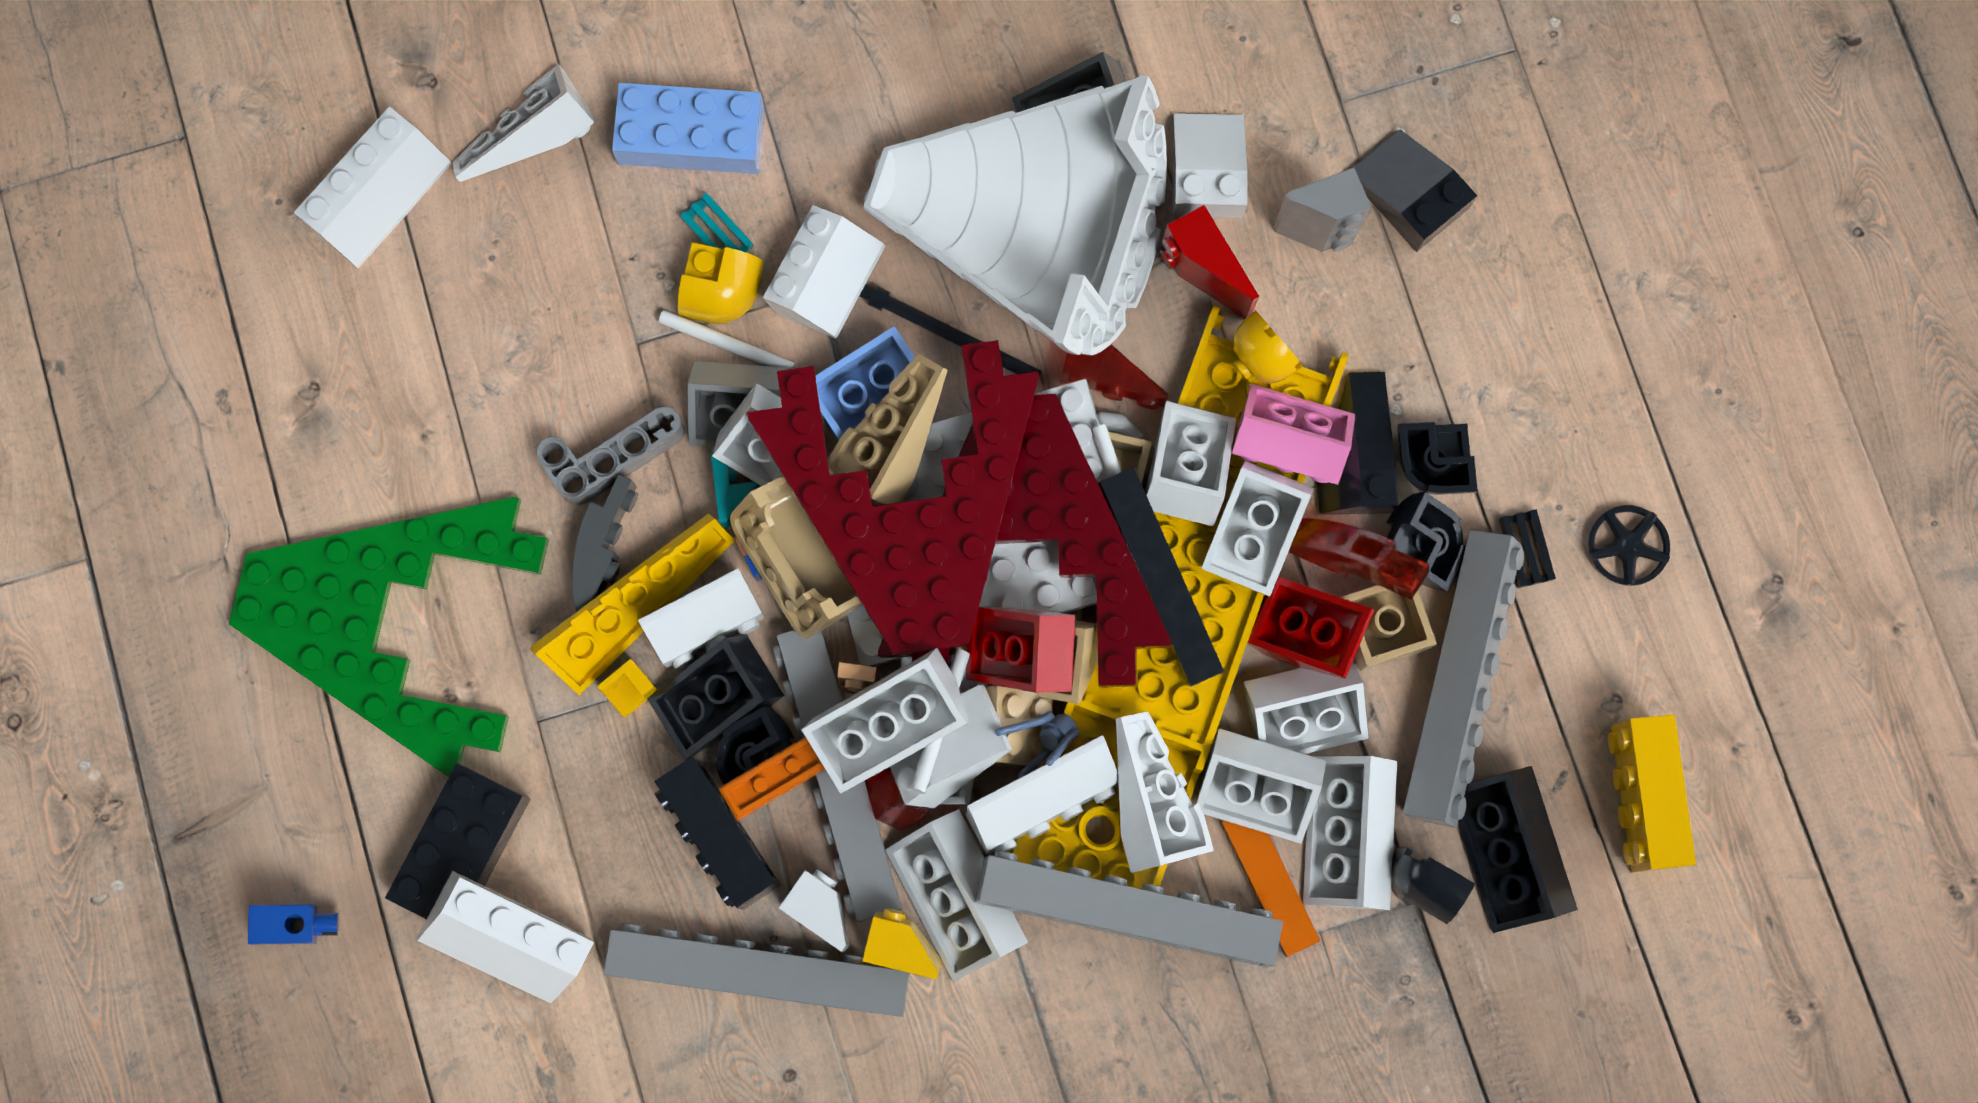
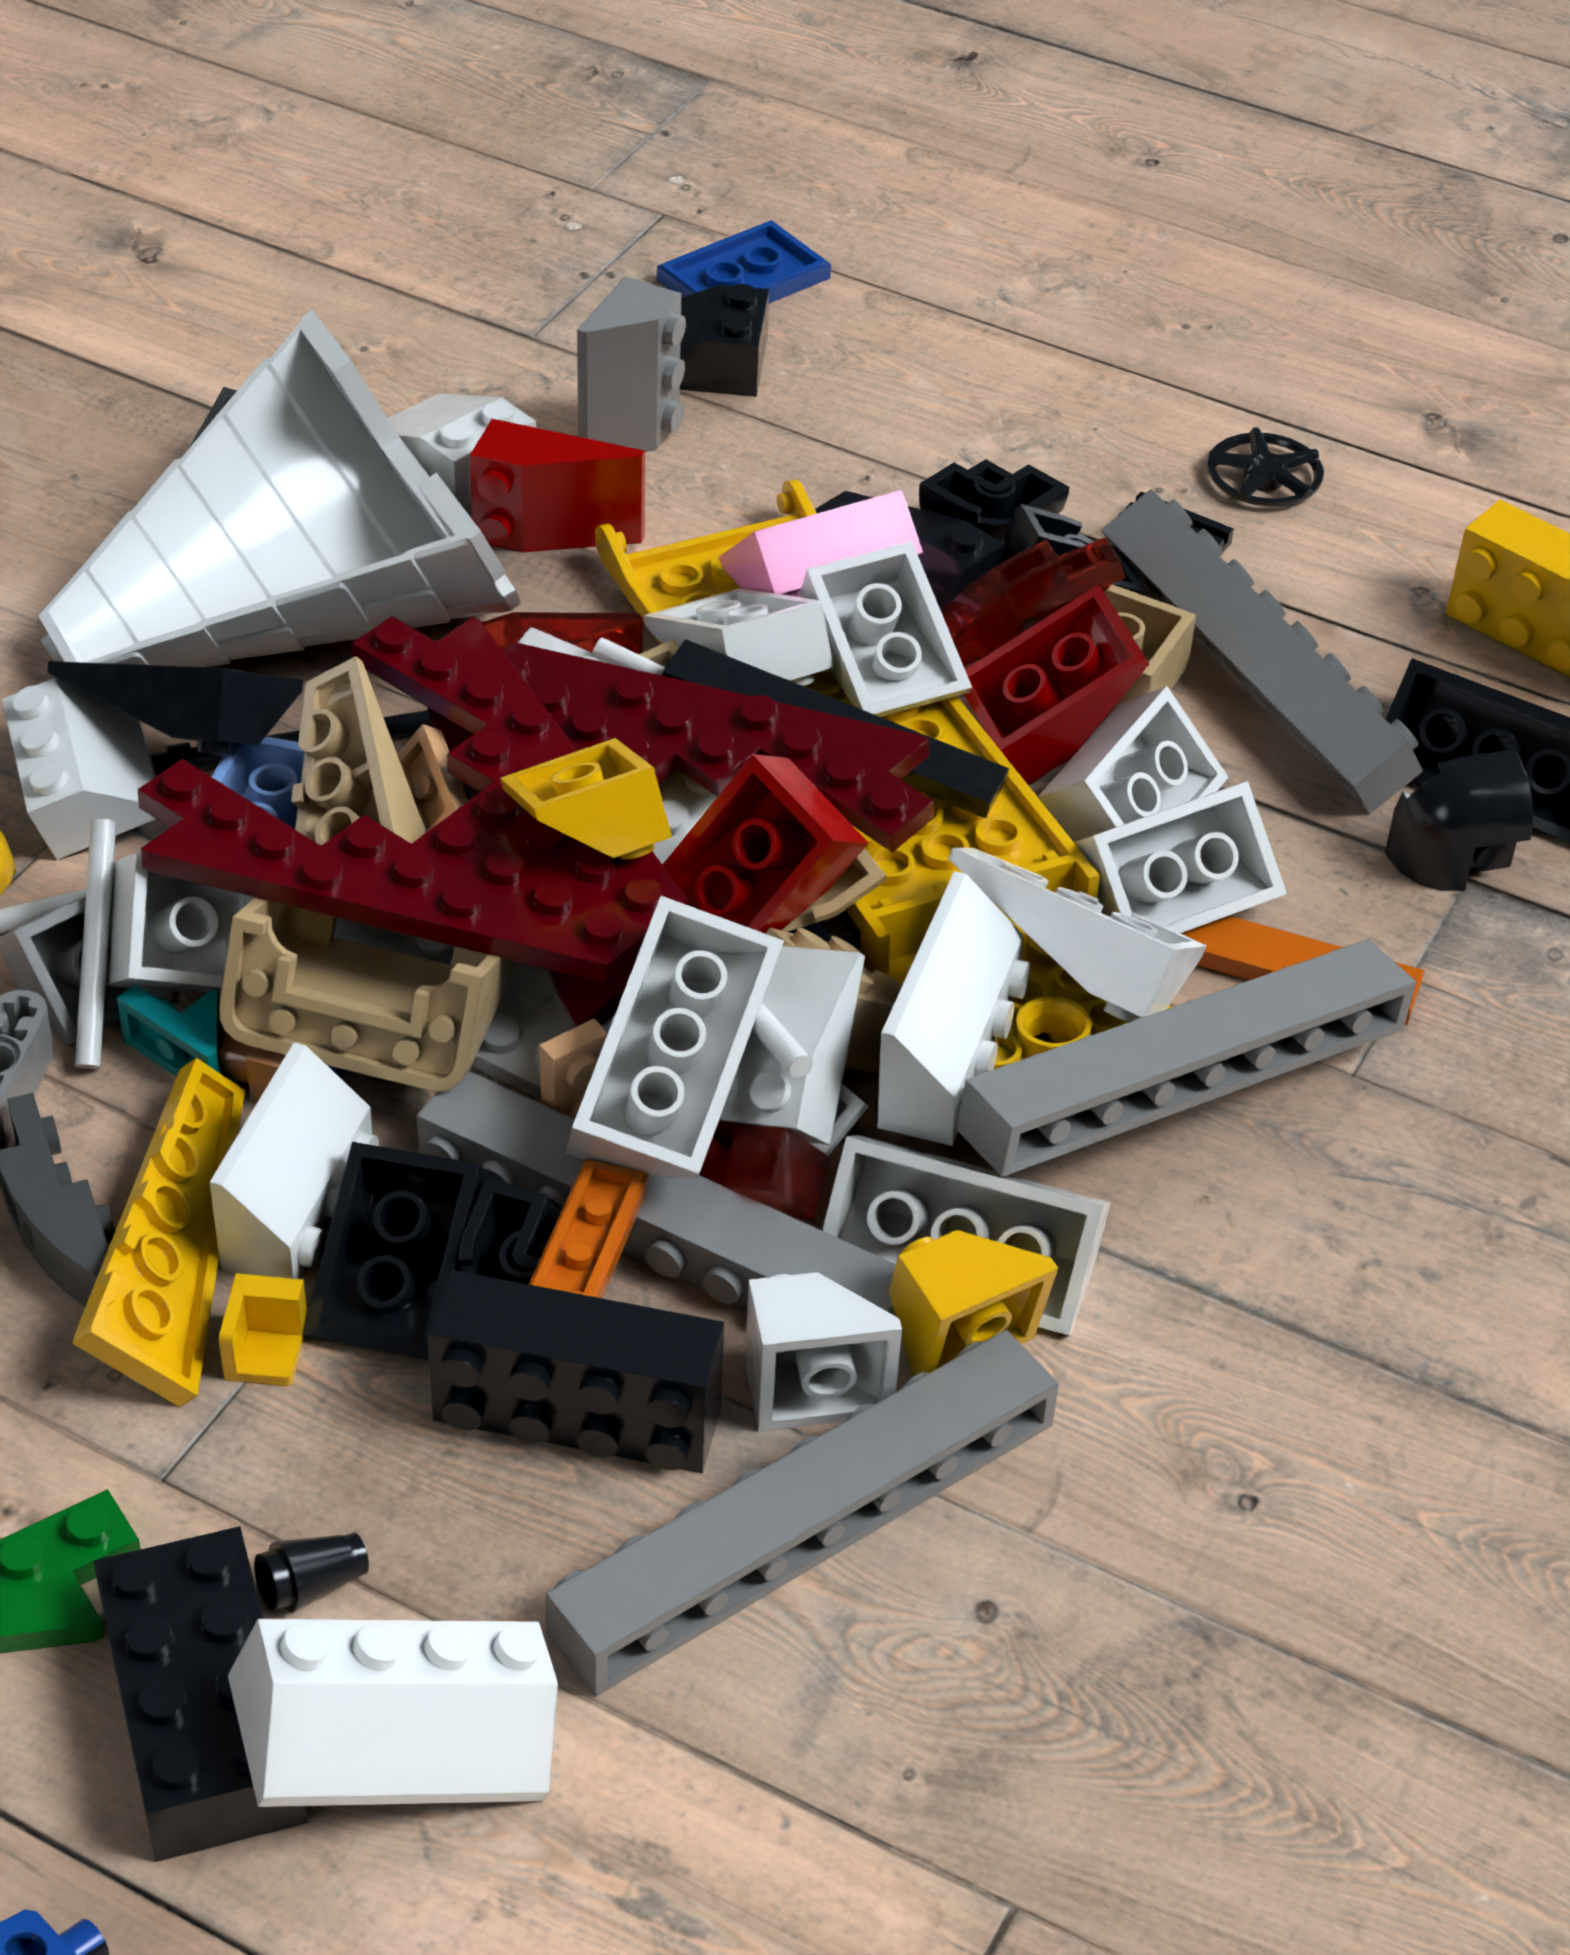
camera: 45 degrees left, 35 degrees down
(547, 824) = (308, 1568): none -> black cone
(723, 413) = (95, 944): none -> white bar
(881, 296) = (189, 702): none -> black wedge
(943, 443) = (425, 768): none -> light nougat plate
(960, 559) = (597, 797): none -> yellow slope
(1055, 736) = (889, 947): sand blue plant -> none
(1262, 351) = (703, 499): yellow cylinder -> none
(1352, 835) = (1335, 859): white slope -> none
(1508, 143) = (756, 257): none -> blue tile

